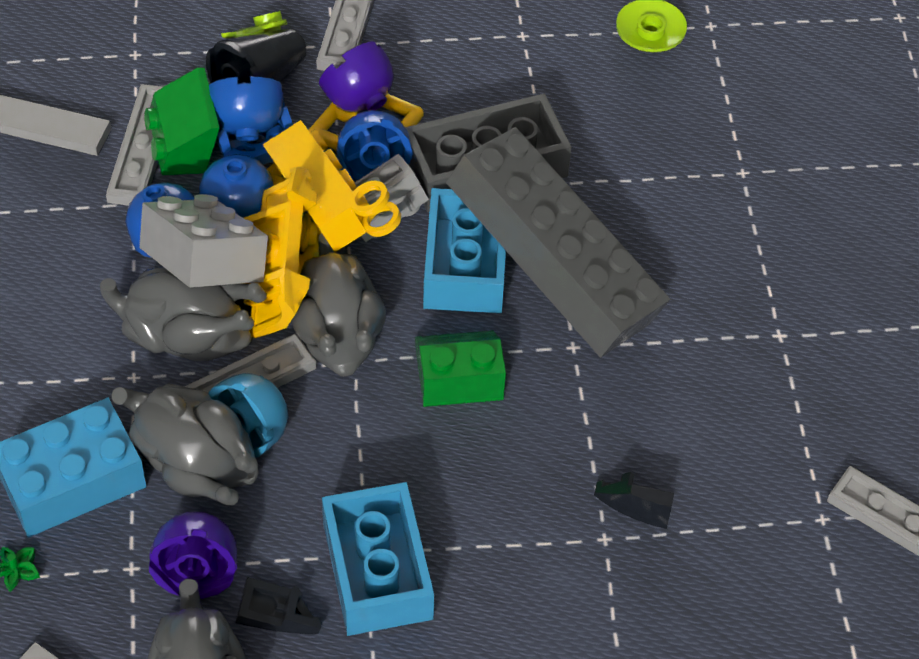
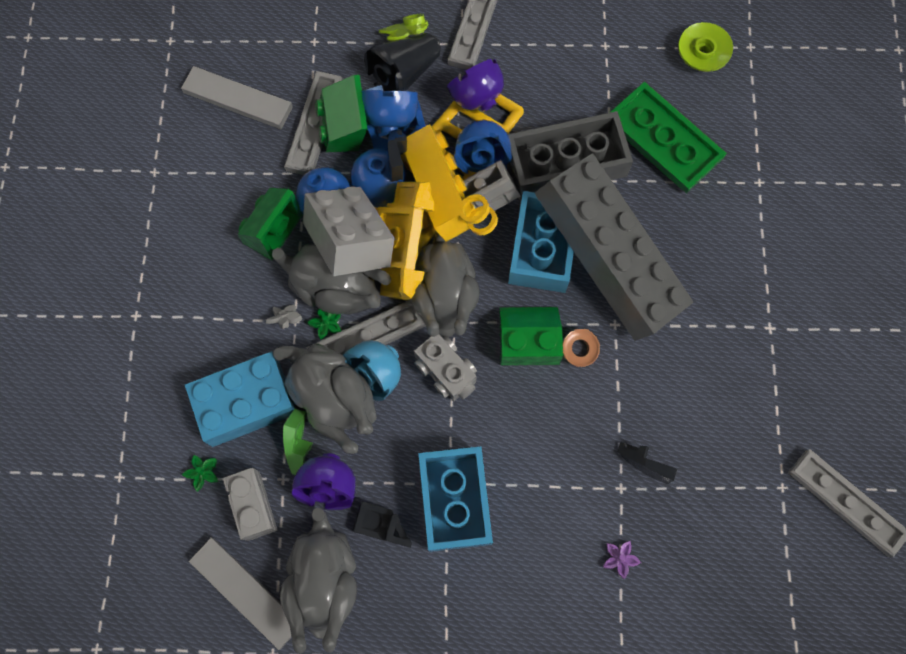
camera: 10 degrees right, 20 degrees up
(89, 593) = (250, 504): none -> light grey brick
(94, 253) = (270, 221): none -> green slope
(120, 367) = (284, 316): none -> light grey plant
(144, 503) = (294, 446): none -> bright green slope
(177, 371) = (325, 322): none -> green plant
(260, 155) = (396, 144): none -> black slope
(348, 407) = (452, 374): none -> light grey brick
(533, 359) = (591, 341): none -> nougat piece
(615, 620) = (621, 559): none -> medium lavender plant
(617, 128) = (667, 138): none -> green plate

